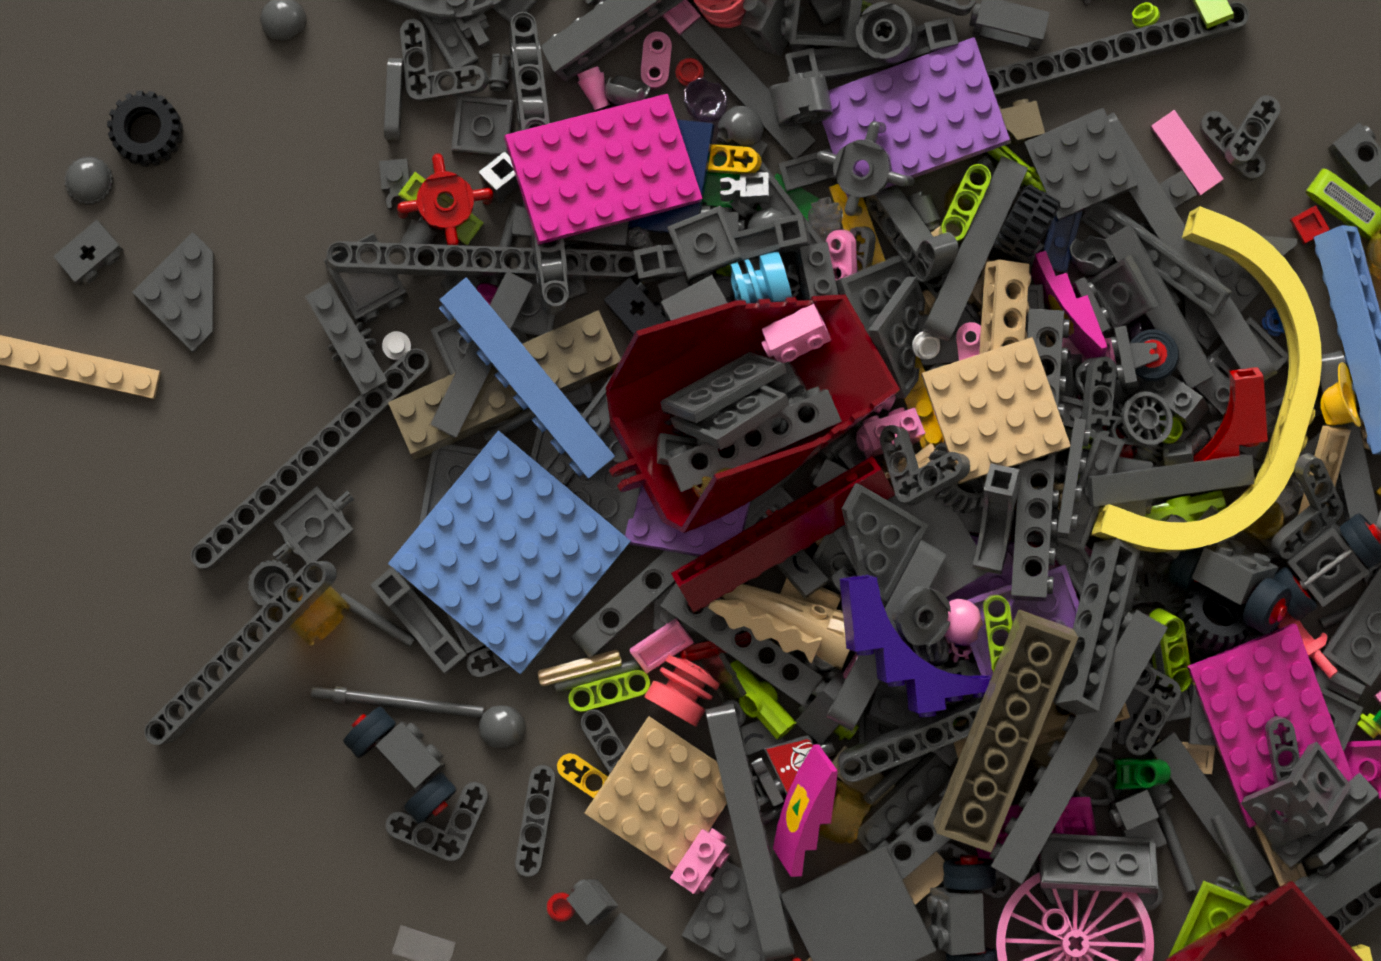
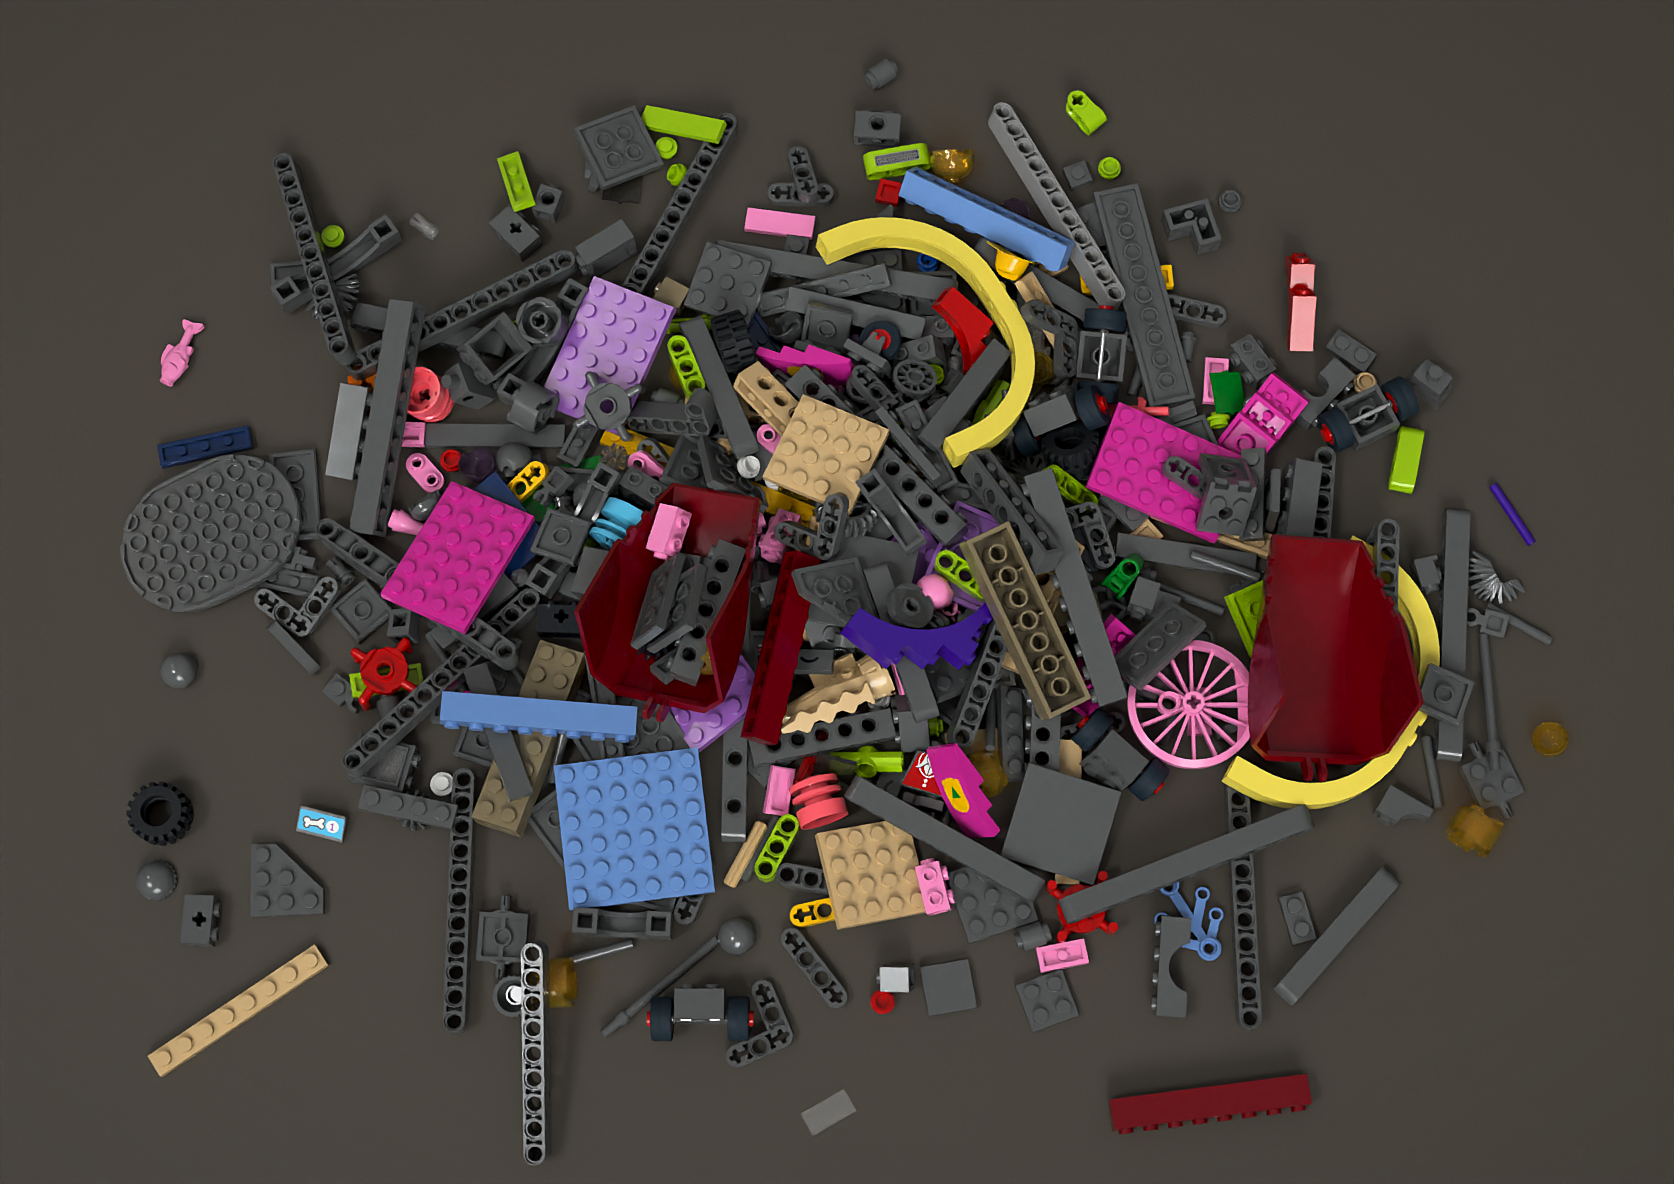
camera: 45 degrees left, 10 degrees down
(266, 275) = (322, 824): none -> slope

